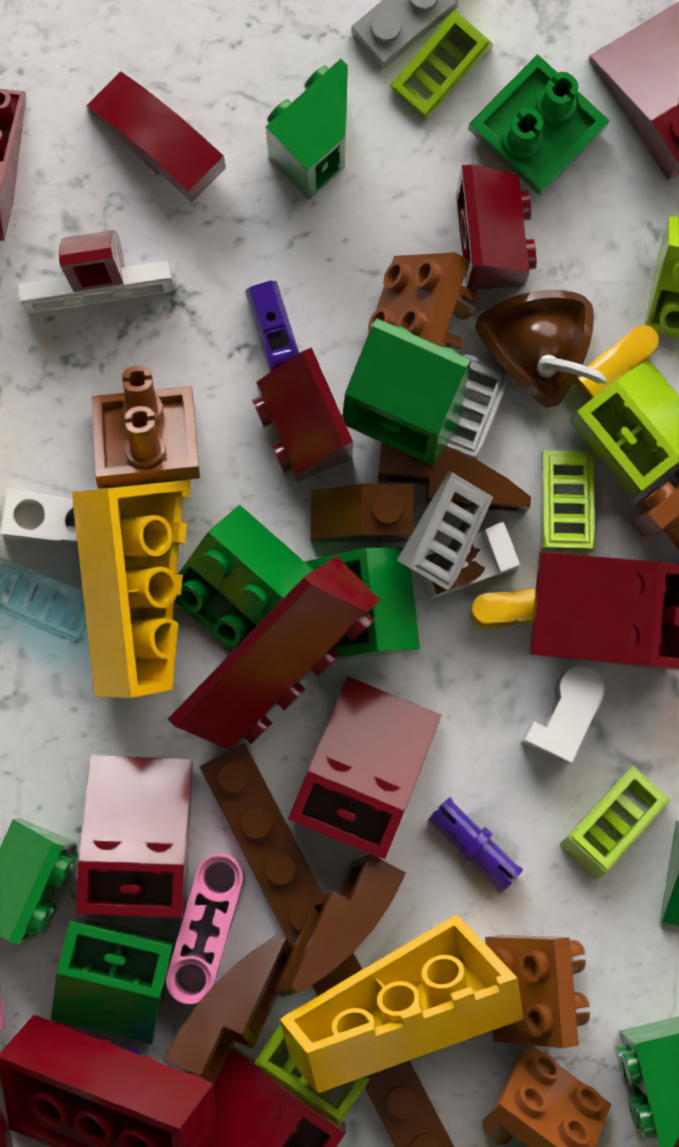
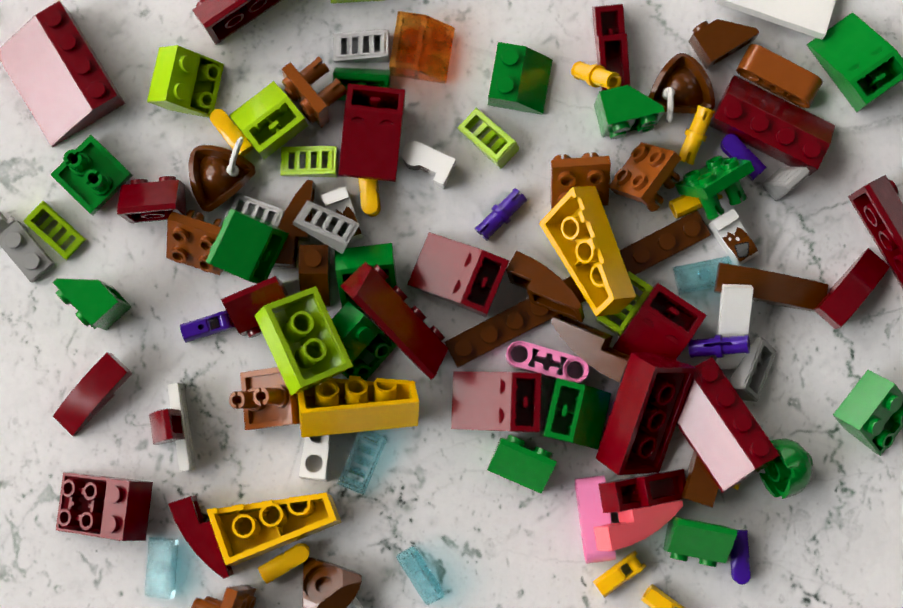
camera: 85 degrees left, 0 degrees up
(238, 492) = (303, 340): none -> lime slope

